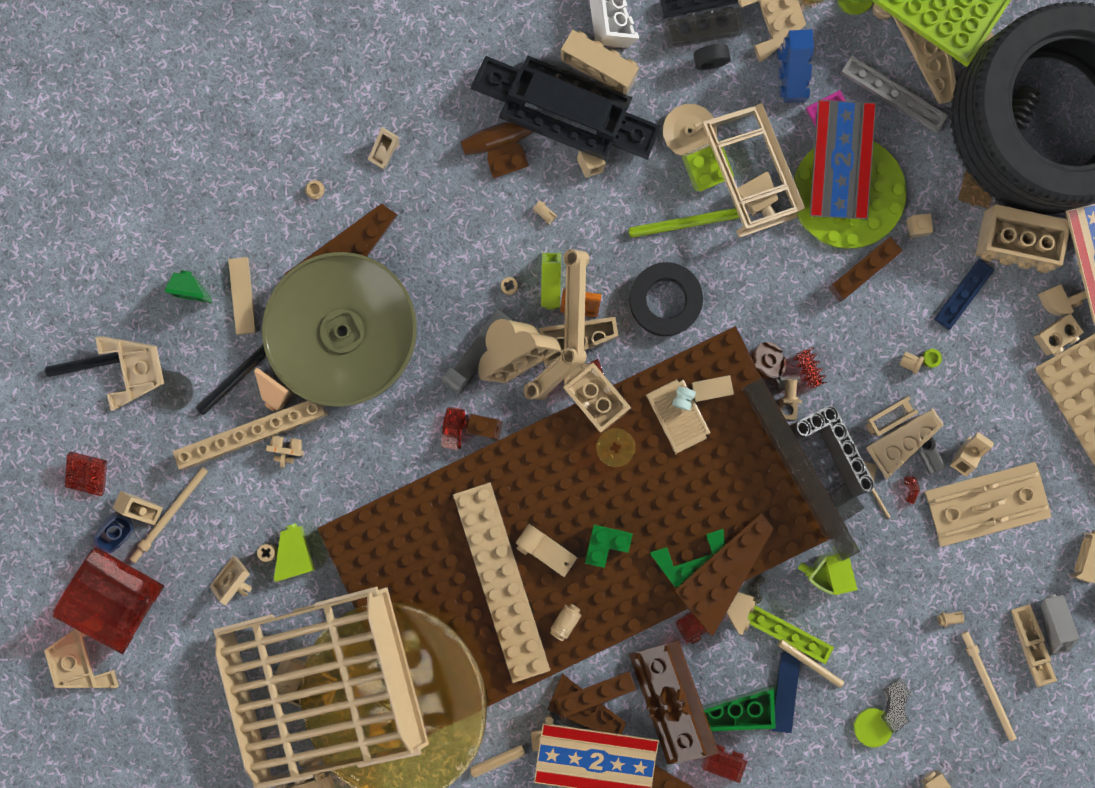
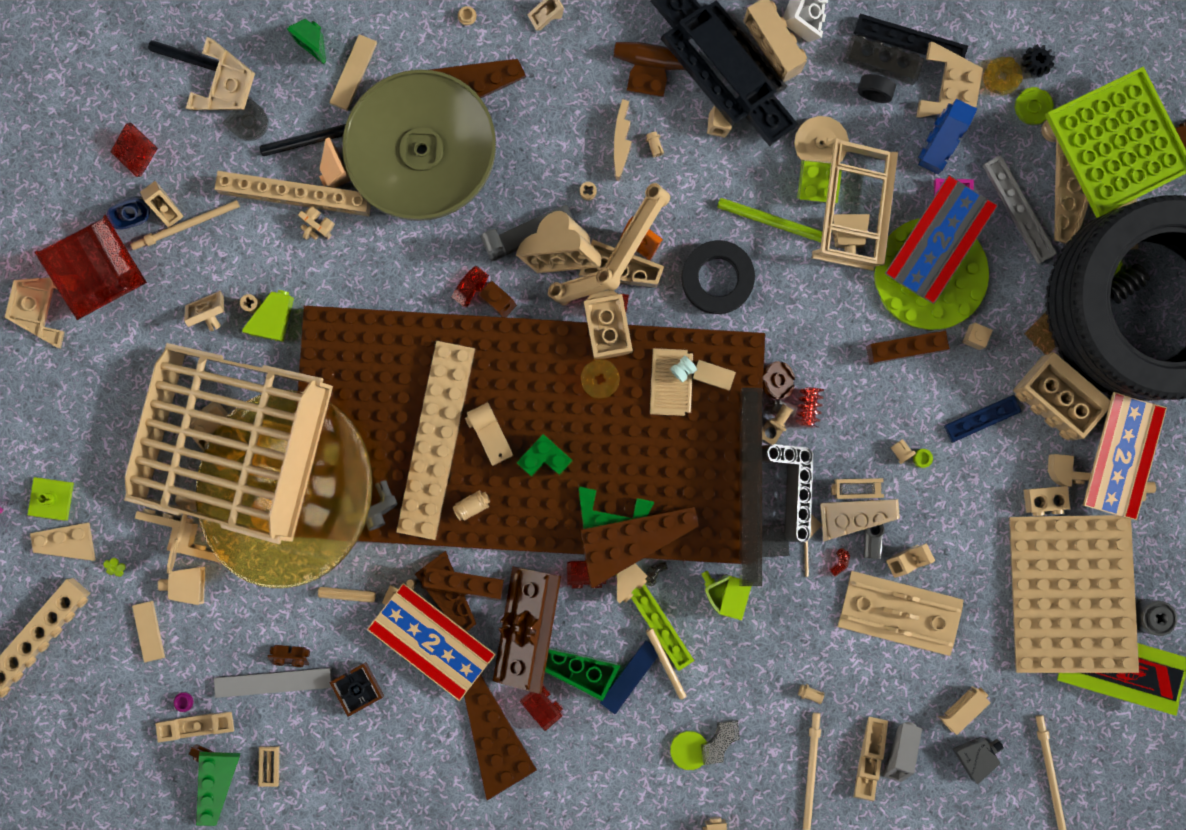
camera: 30 degrees right, 0 degrees up
(490, 661) = (376, 511): none -> dark grey connector
(516, 230) = (621, 145): none -> tan slope
(551, 280) = (626, 205): lime slope -> none

